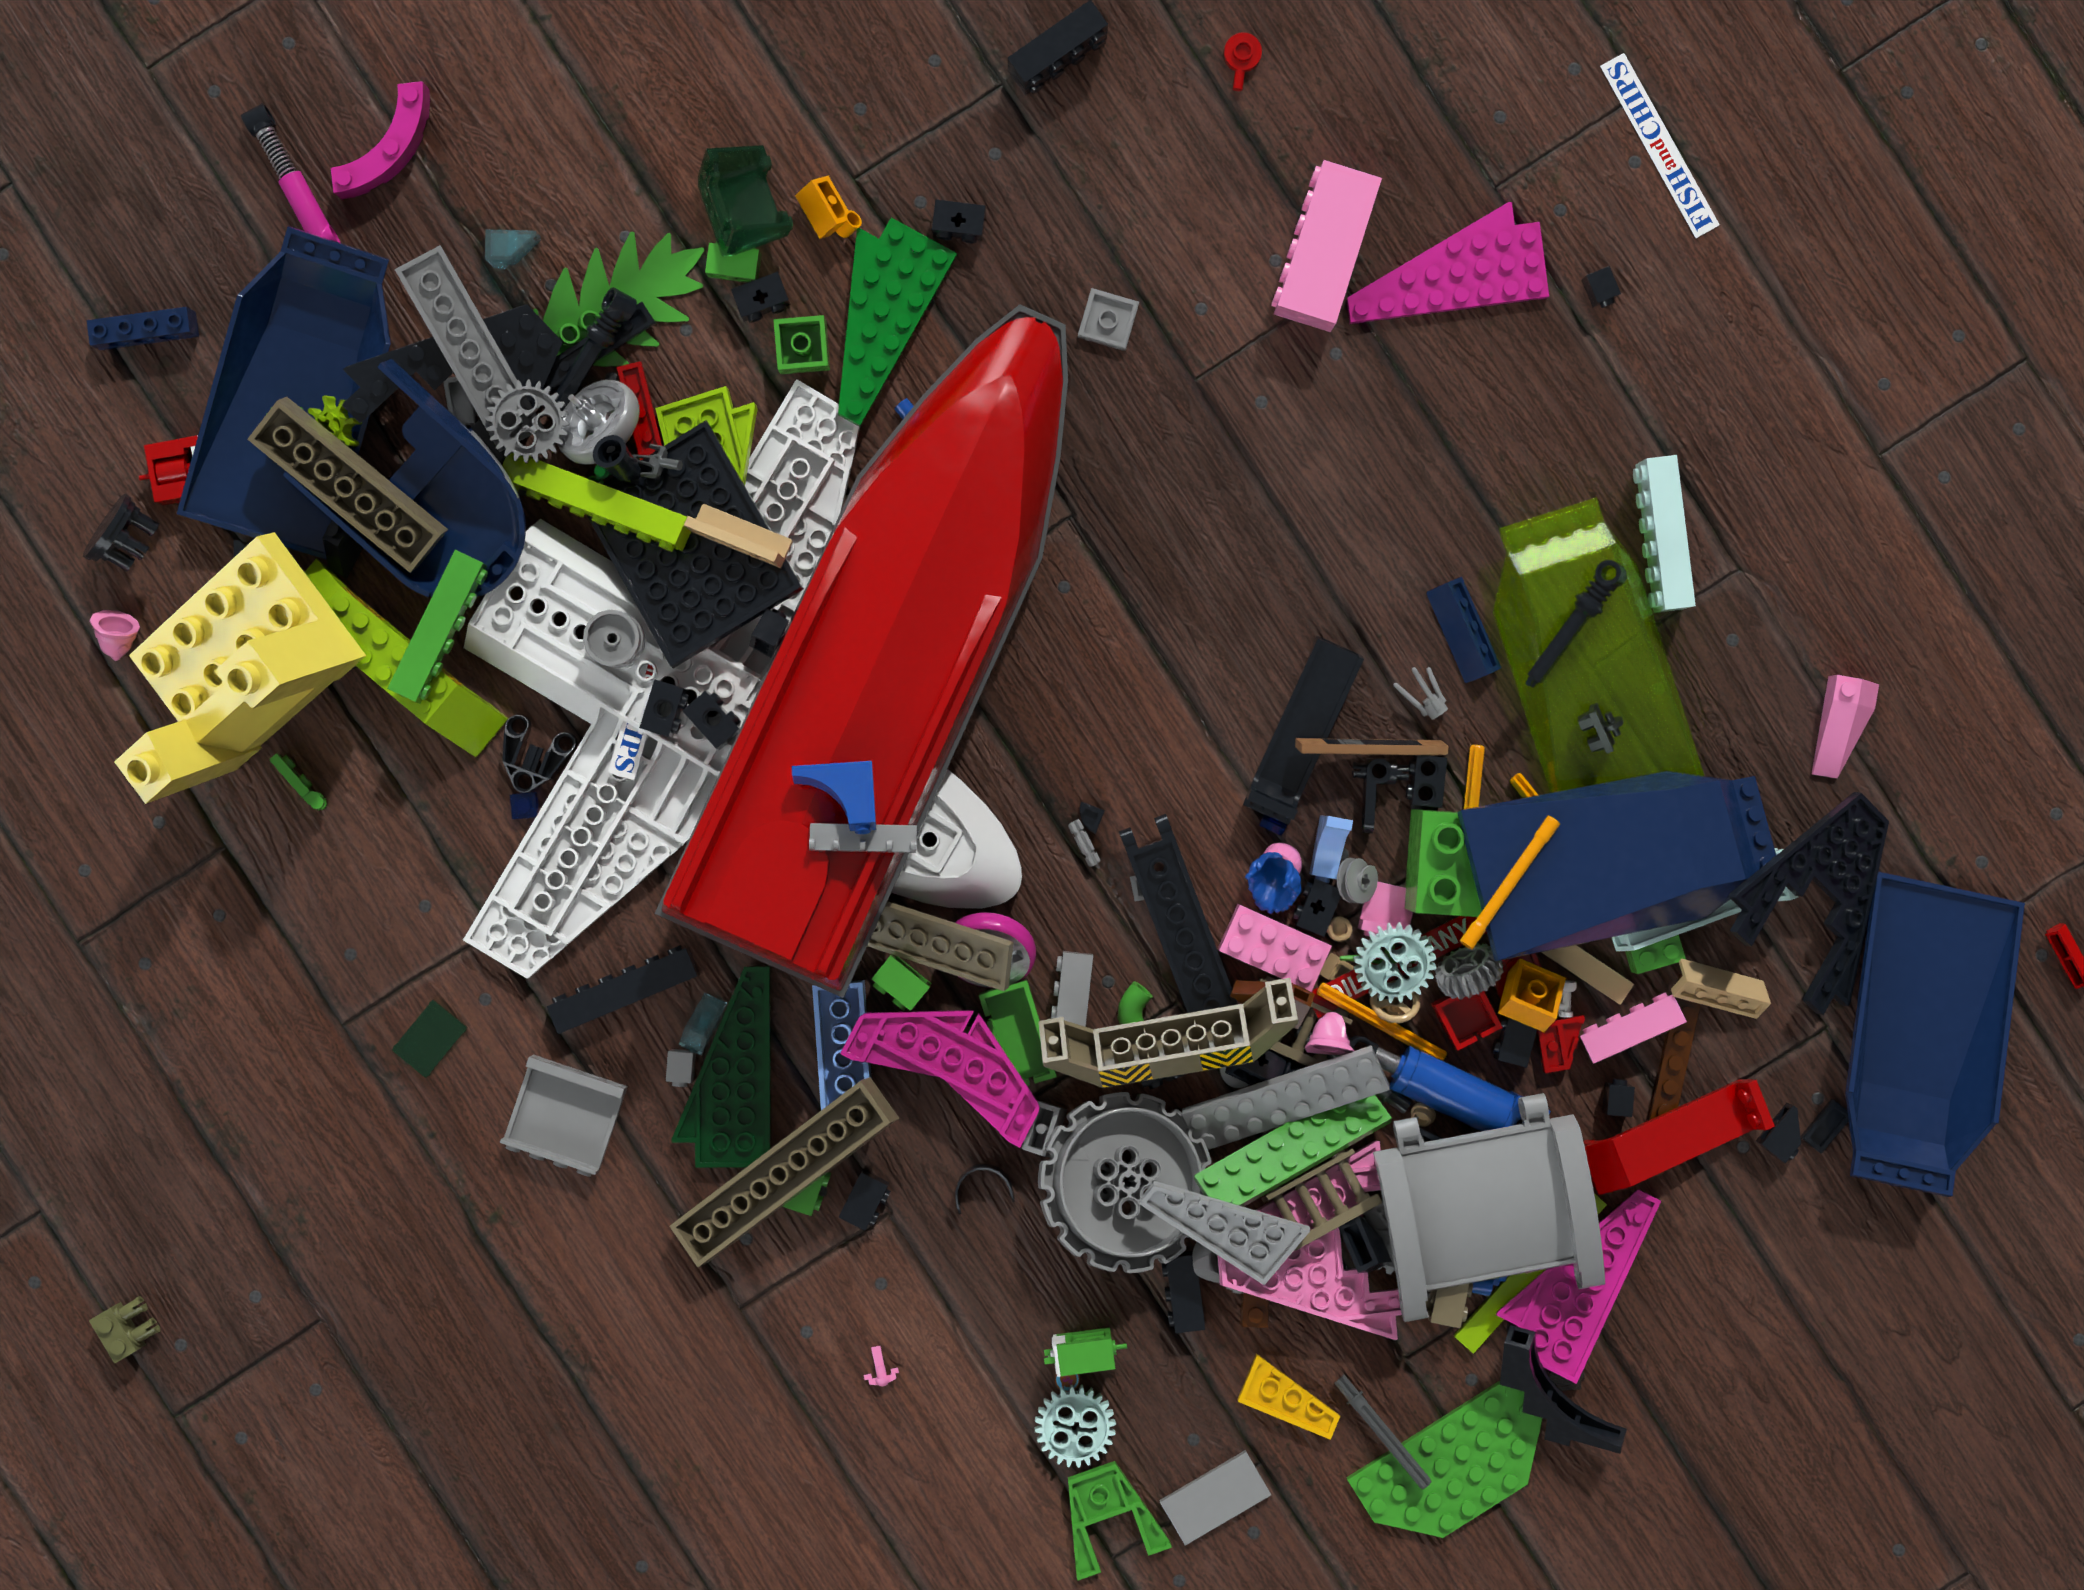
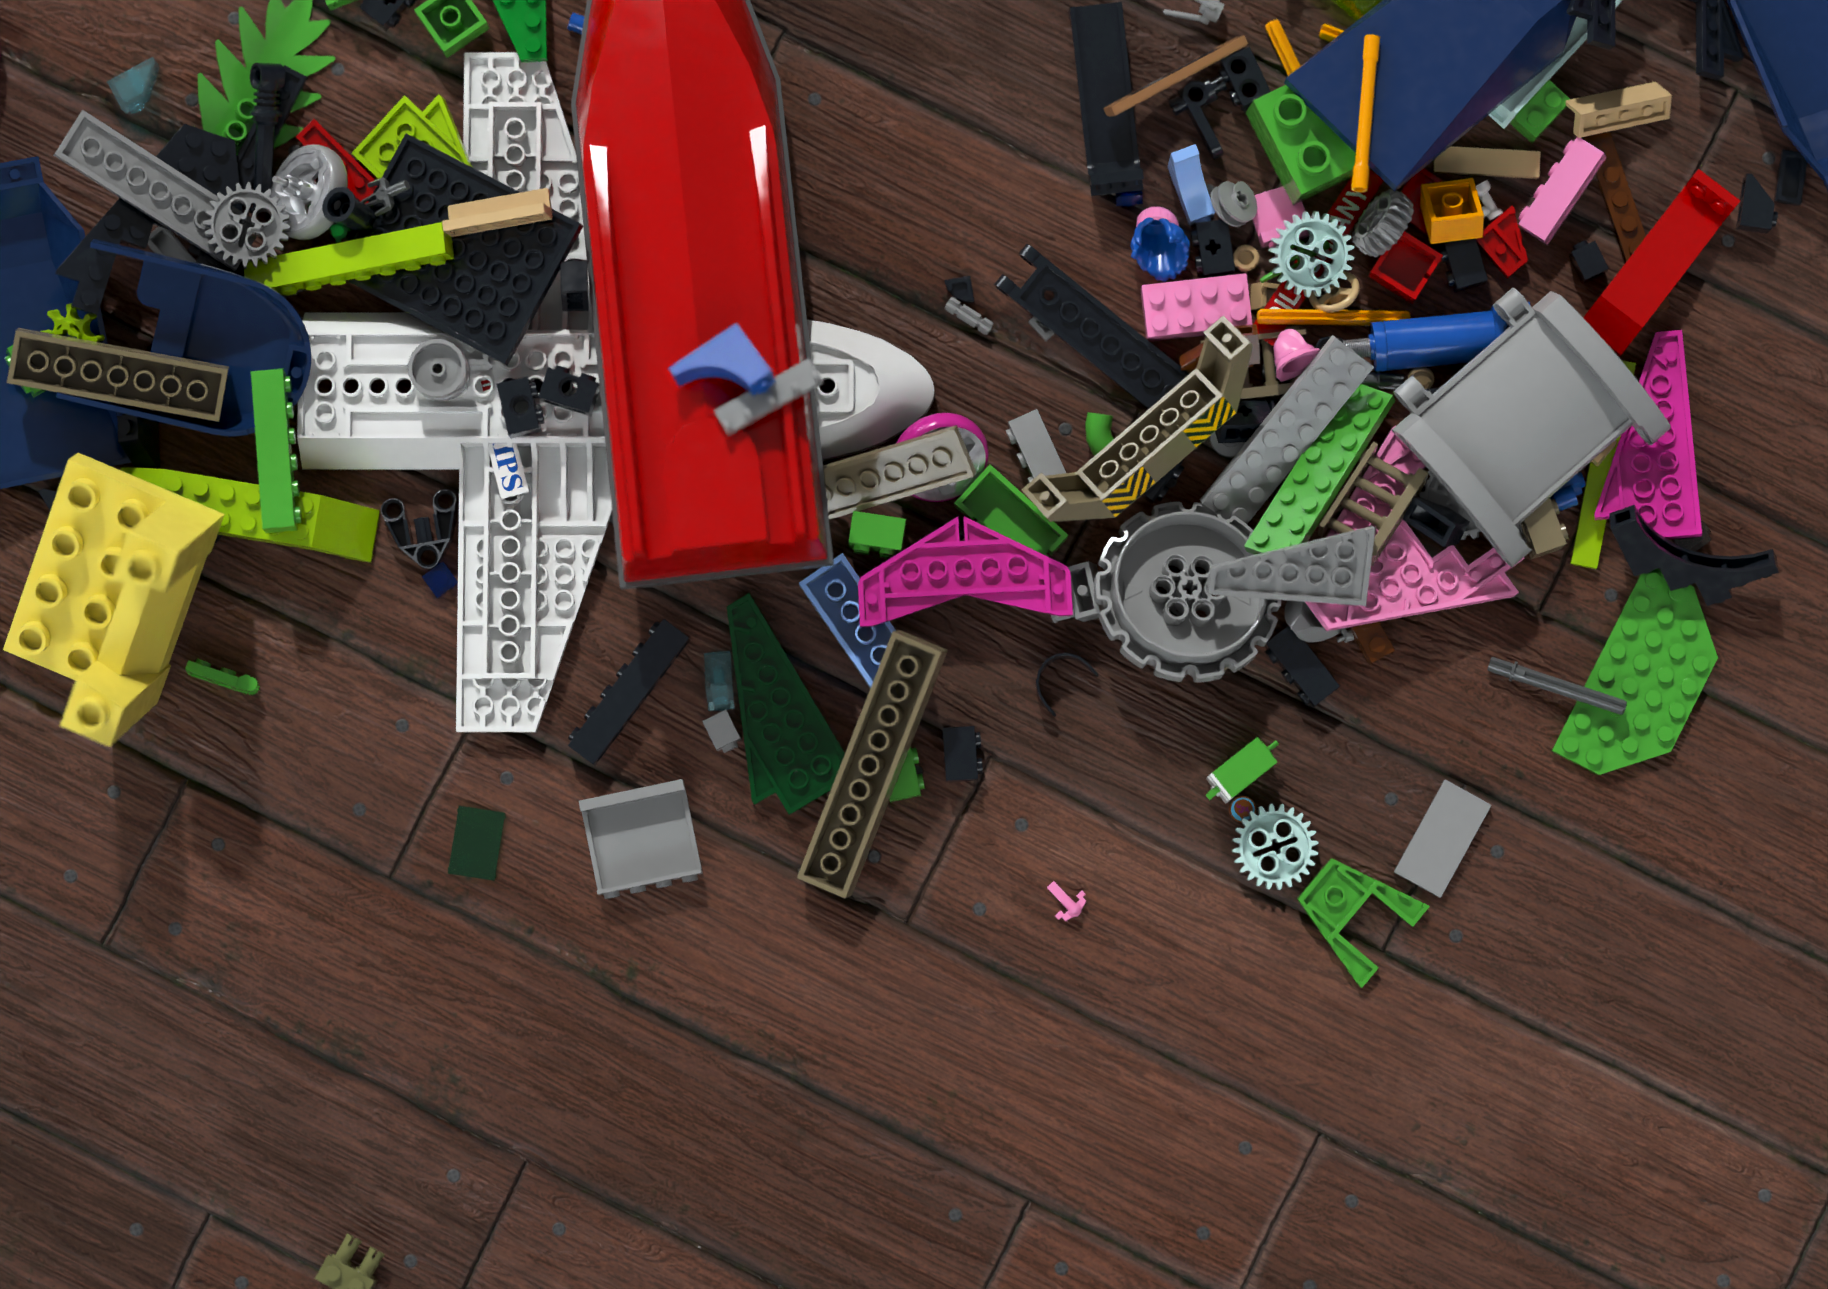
camera: 25 degrees left, 5 degrees down
(1281, 1397) = (1444, 710): yellow wing -> none

